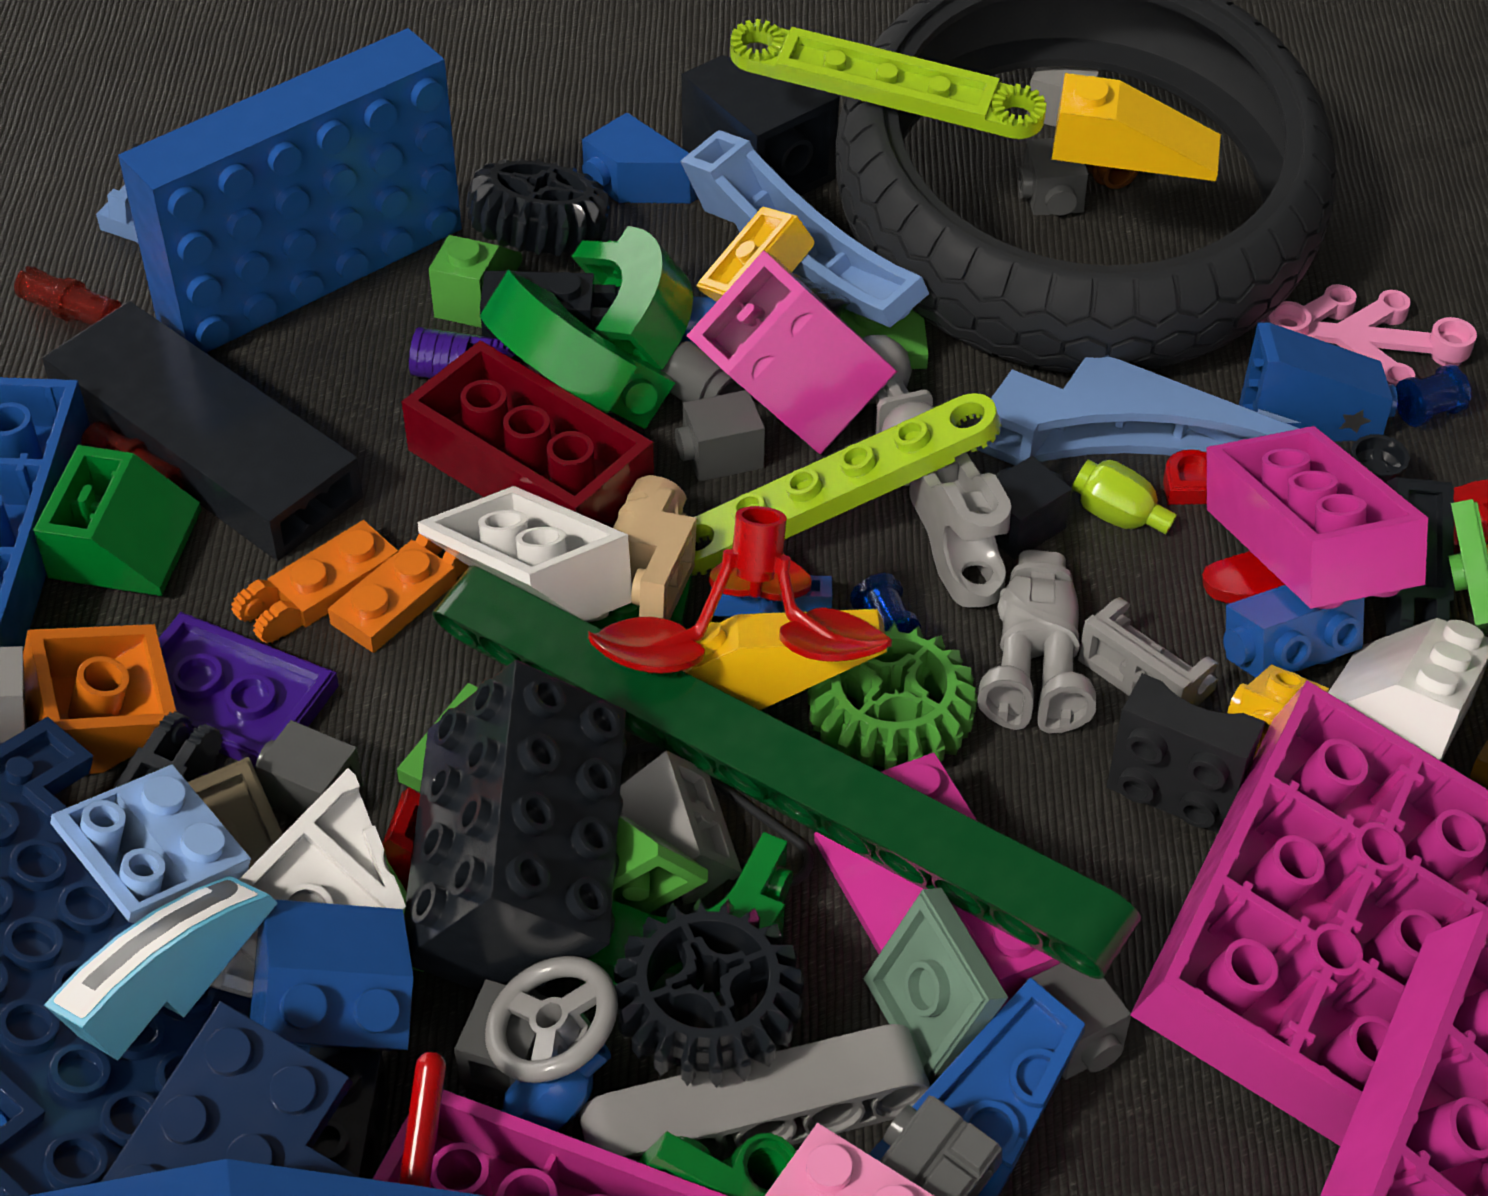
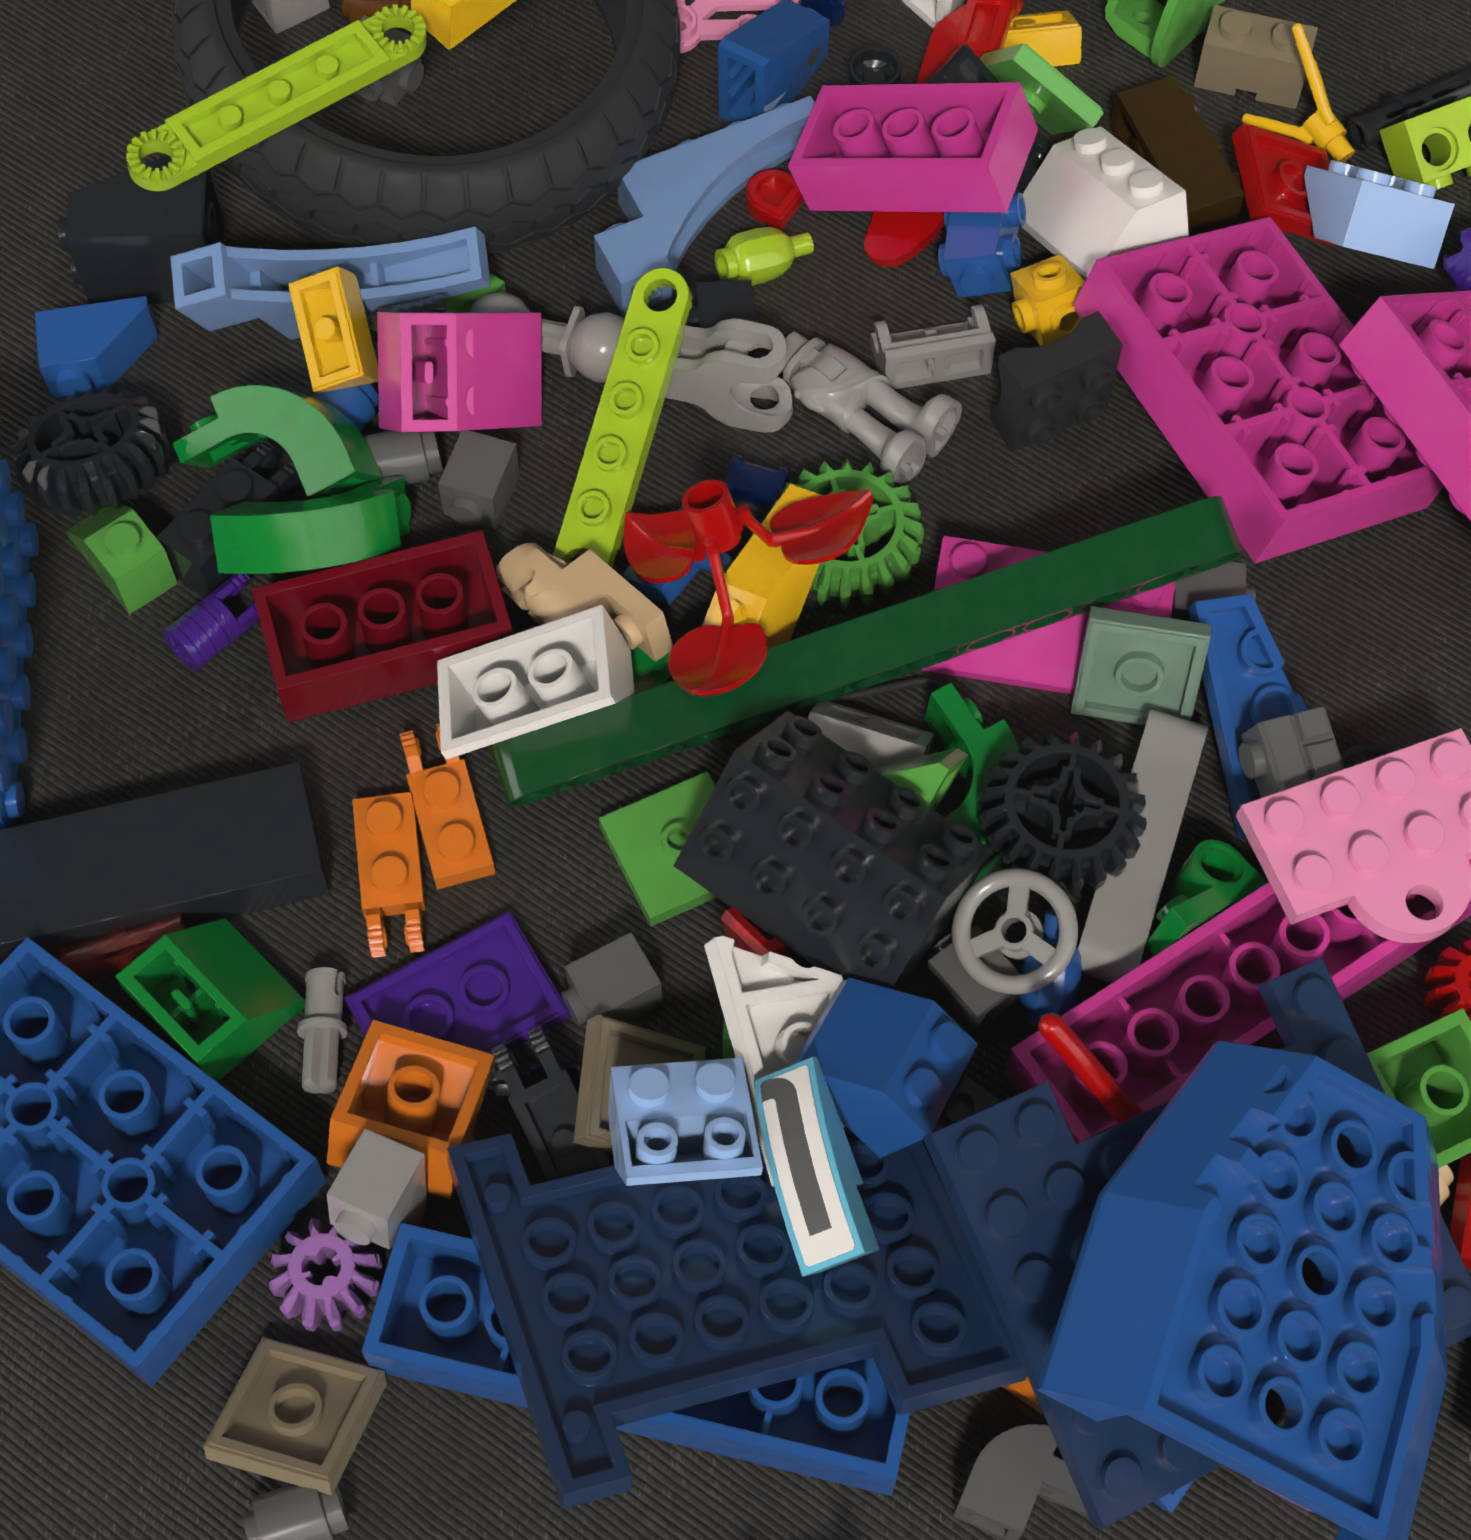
camera: 55 degrees left, 15 degrees up
(149, 607) = (322, 1029): none -> light grey axle

